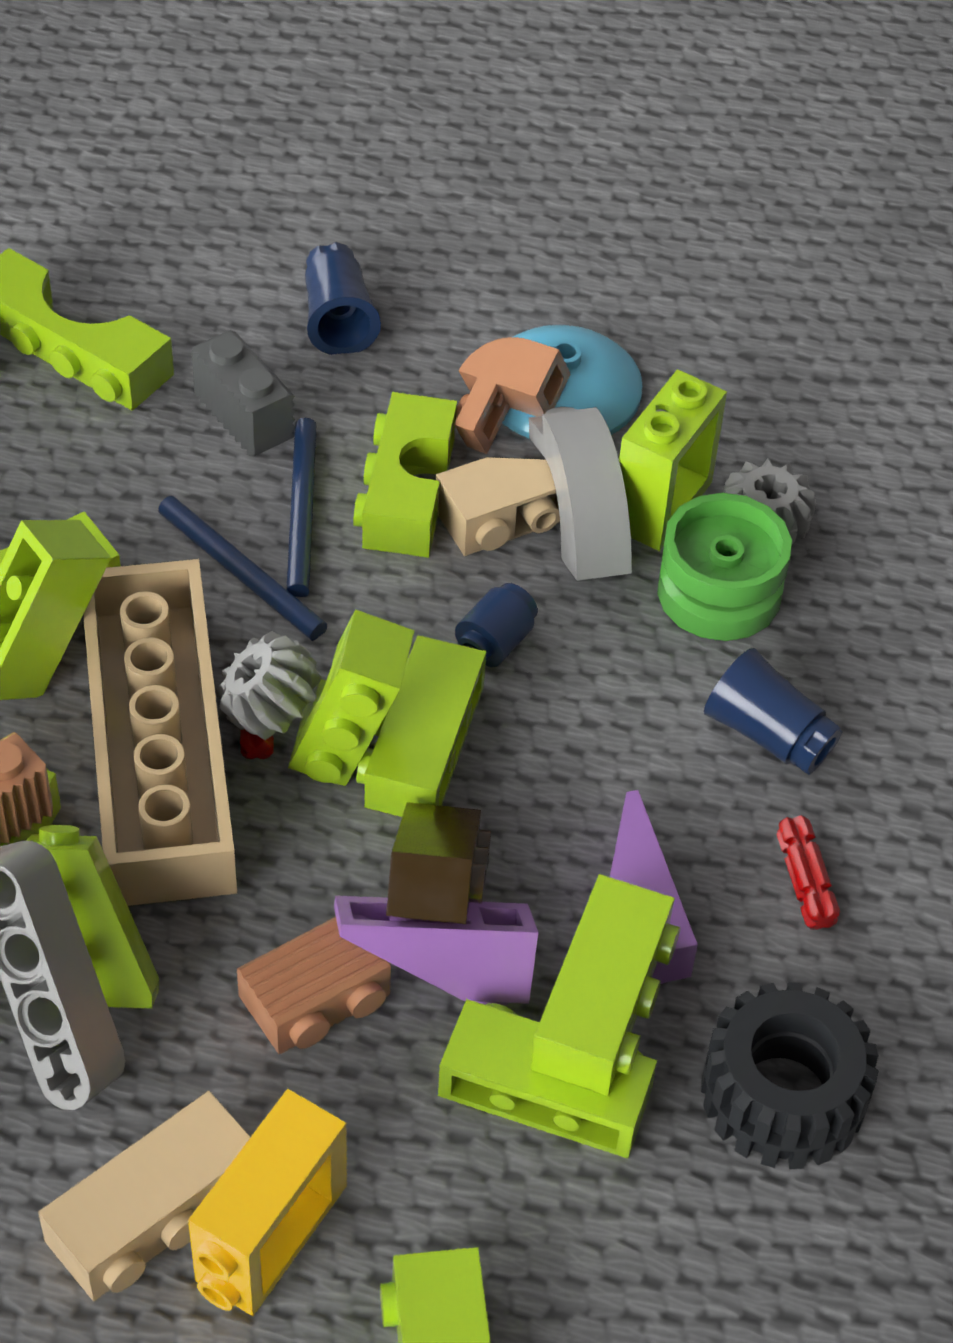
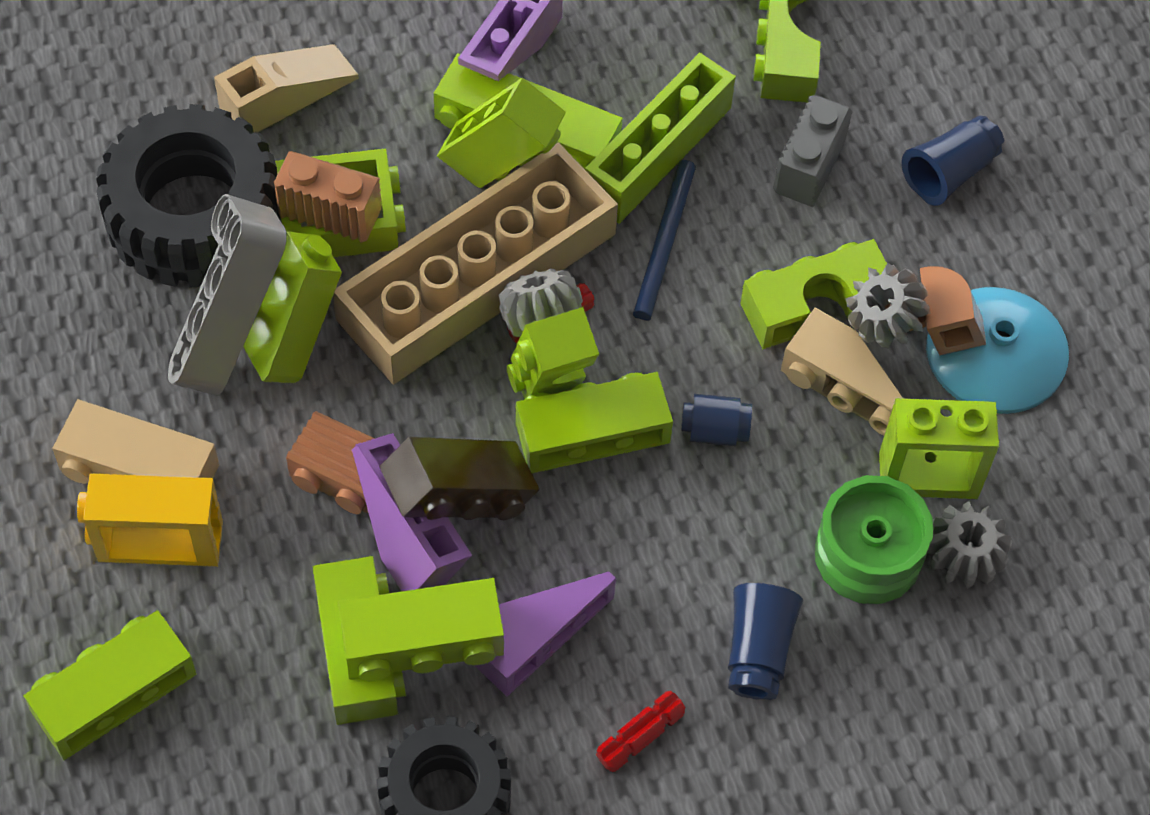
camera: 60 degrees right, 10 degrees up
(125, 482) = (663, 133): none -> lime brick
(301, 508) = (746, 245): dark blue bar -> none
(504, 422) = (906, 306): none -> light grey gear
(587, 491) = (864, 408): light grey arch -> none

